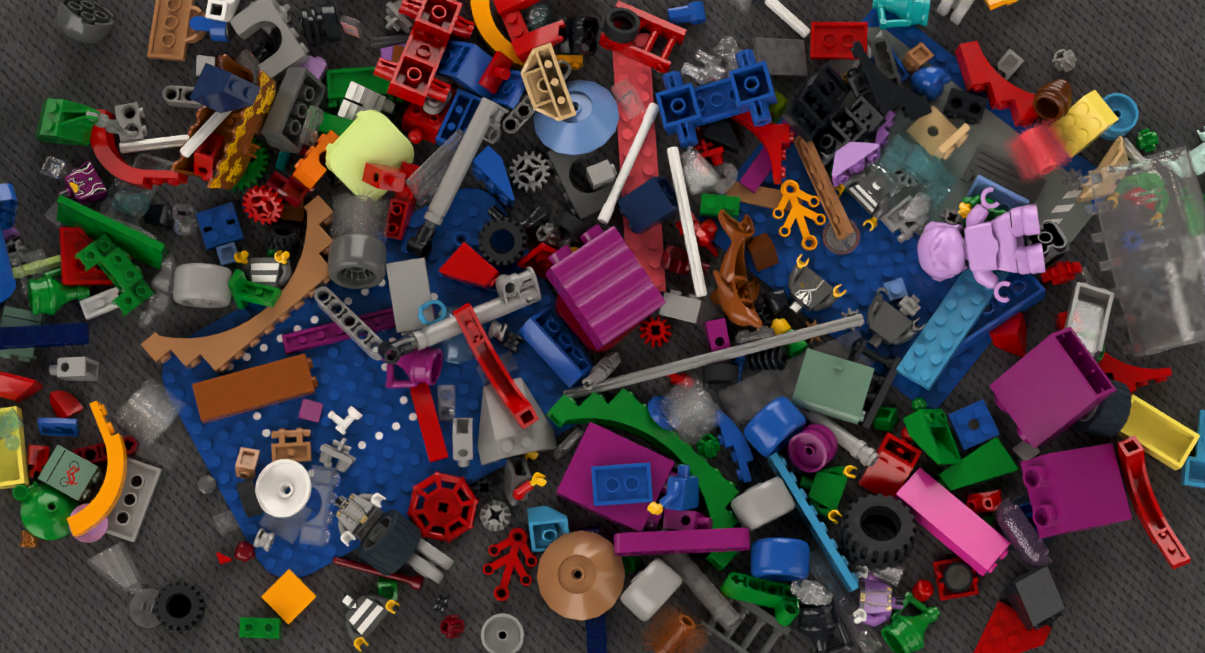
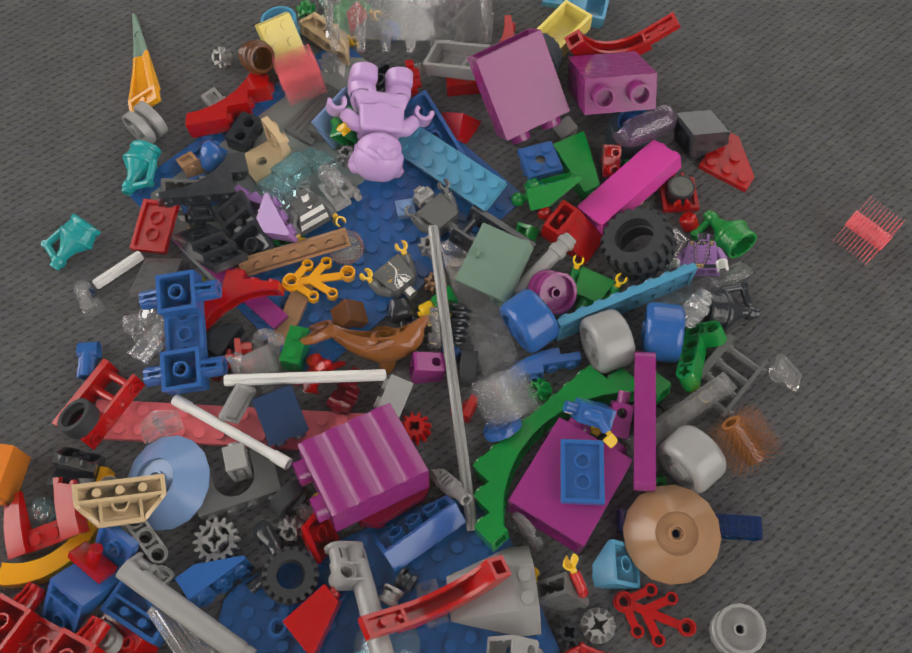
camera: 80 degrees left, 15 degrees down
(654, 164) = (237, 403): none -> light grey tile

